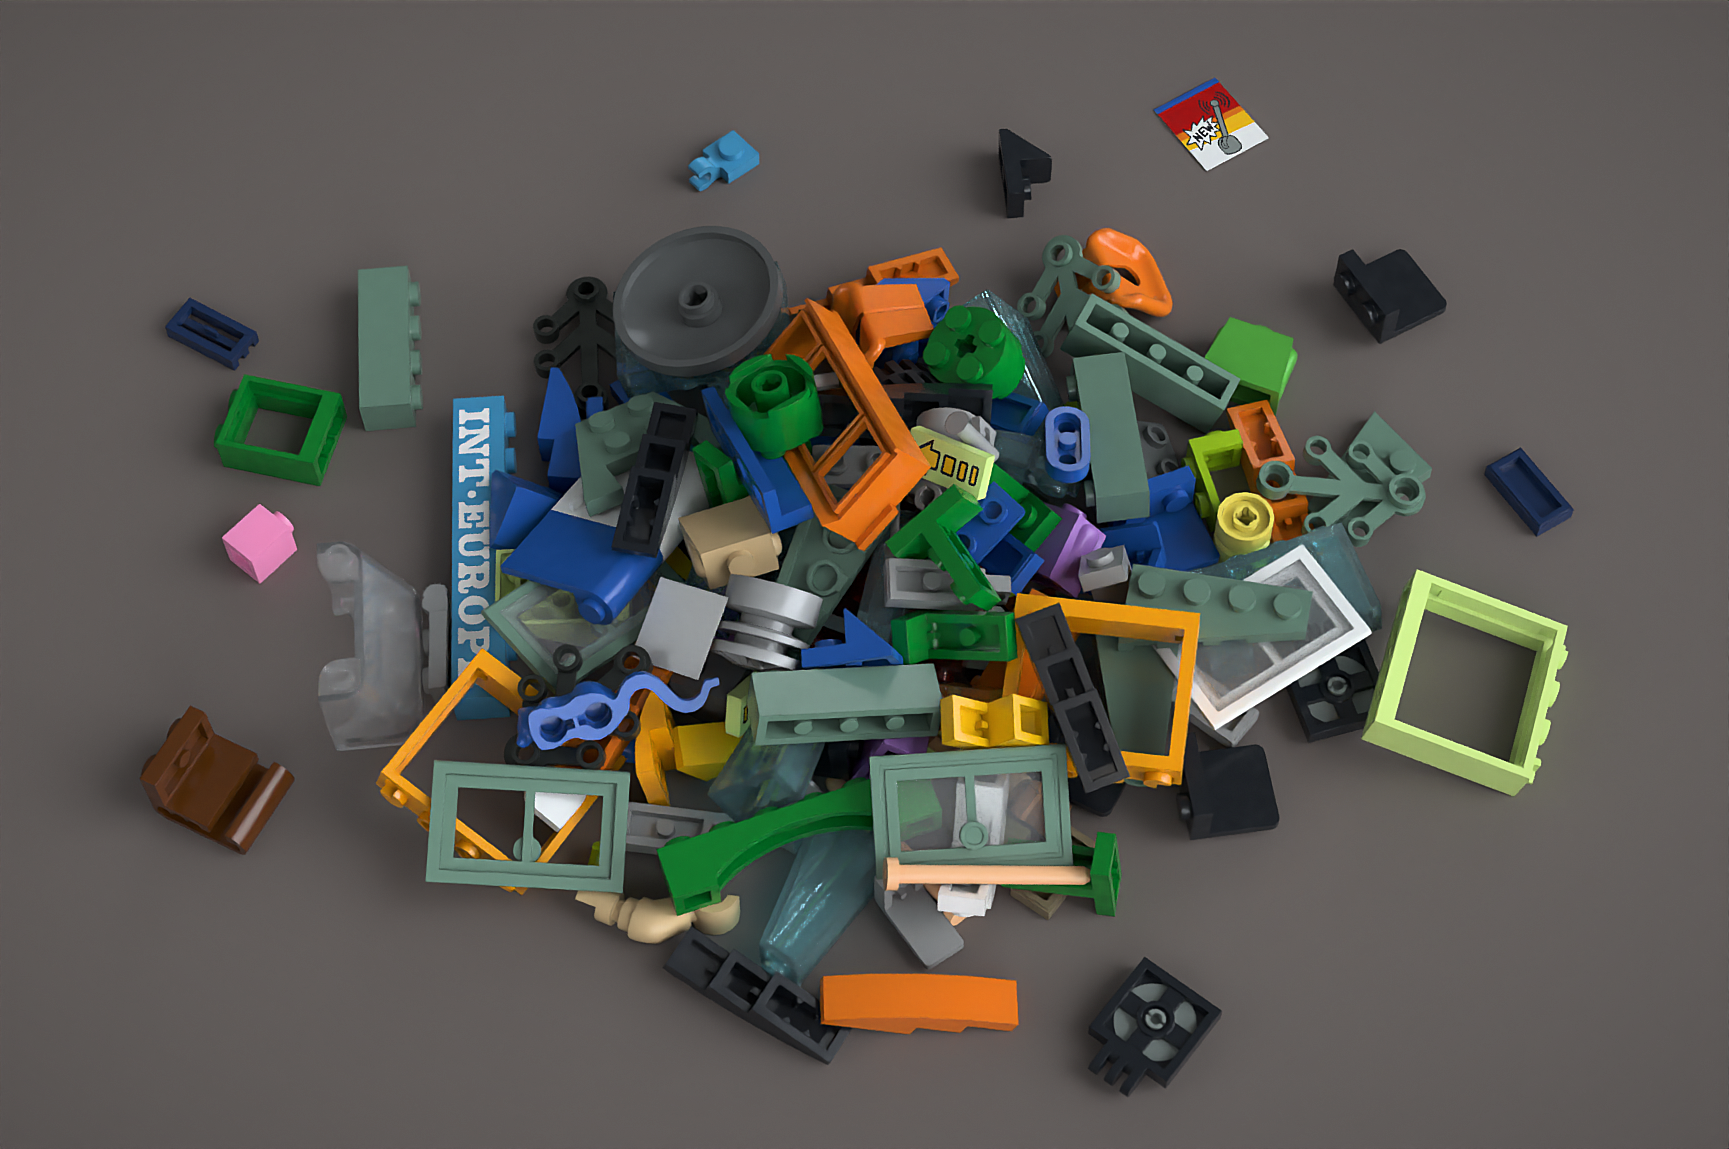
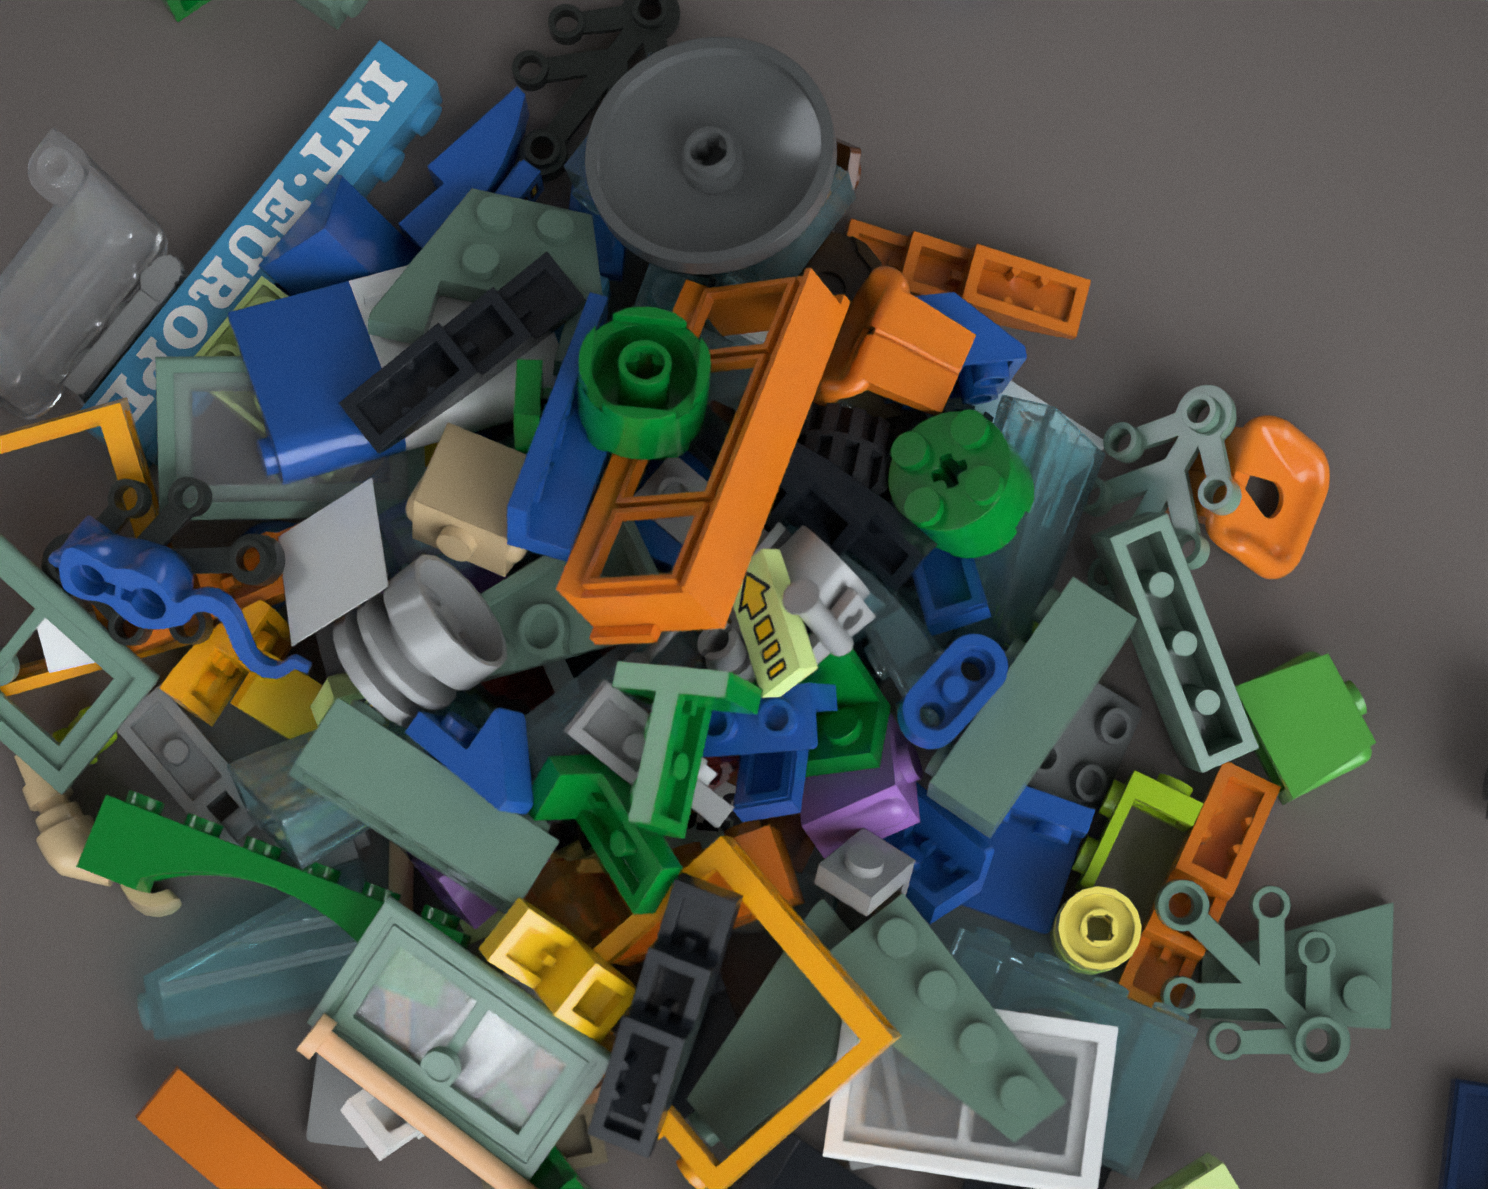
camera: 40 degrees right, 20 degrees up
(260, 542) = (49, 49): bright pink brick -> none
(755, 995) = (105, 1009): black slope -> none
(1019, 168) = (1279, 240): black slope -> none

